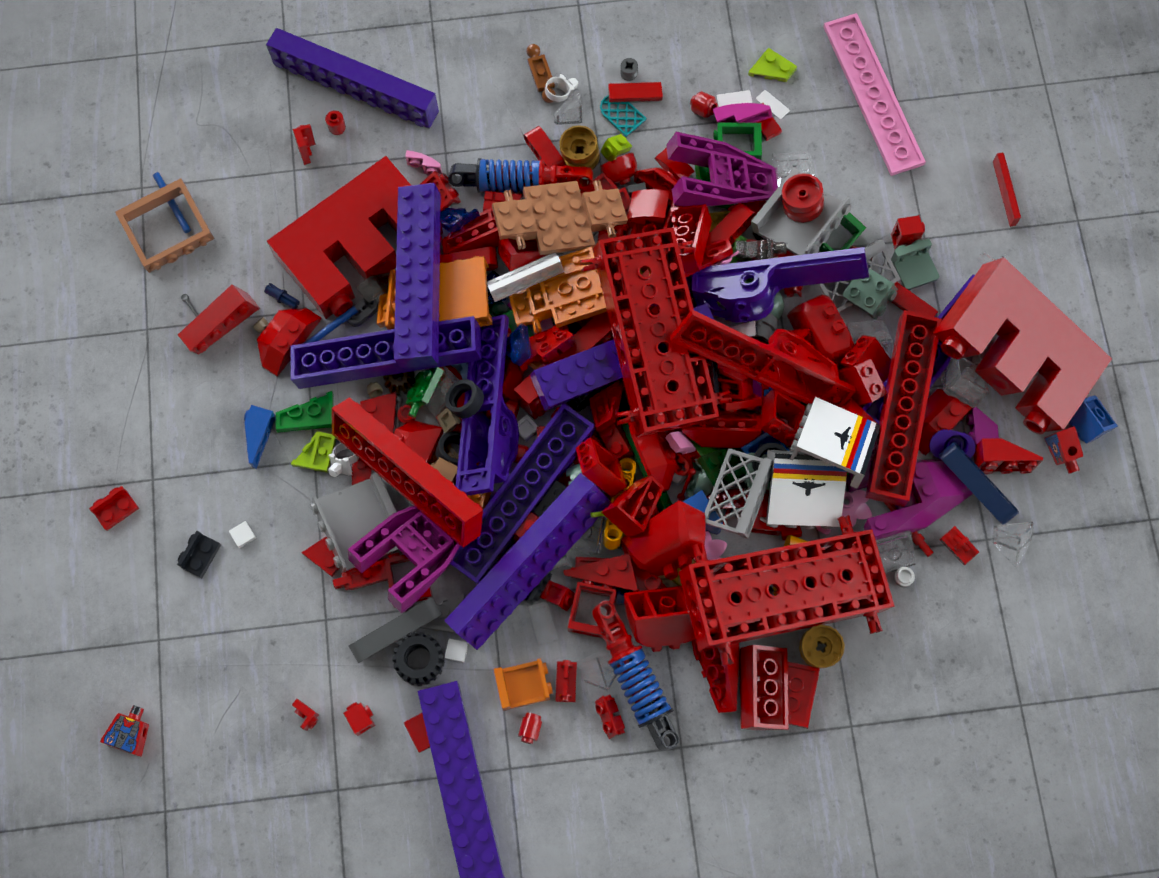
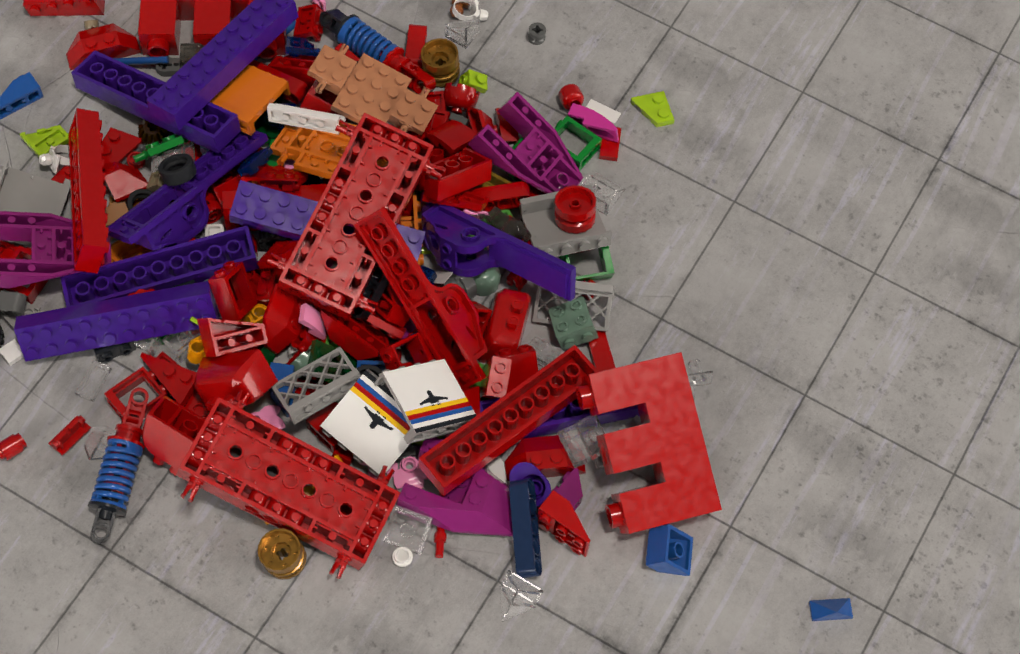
camera: 30 degrees right, 10 degrees down
(281, 296) = (125, 16): dark blue axle -> none
(307, 416) = (60, 108): green wing -> none
(374, 389) = (132, 124): dark tan hinge -> none
(523, 684) = (34, 412): orange panel -> none
(558, 595) = (121, 367): red bracket -> none
(612, 725) = (74, 492): red hinge -> none
(617, 126) = (502, 78): teal window -> none
(635, 92) = (526, 53): red tile -> none
(722, 679) = (191, 517): red wedge -> none
(764, 688) = (211, 552): red slope -> none
(776, 106) = (630, 136): white sticker -> none
(801, 693) = (238, 578): red wing -> none
(874, 94) = (718, 183): bright pink plate -> none
(907, 231) = (644, 299): red brick -> none
(915, 264) = (632, 329): sand green bracket -> none
(959, 545) = (466, 564): red hips -> none
(1006, 189) = (754, 342): red tile -> none
(1065, 448) = (625, 549): red torso -> none

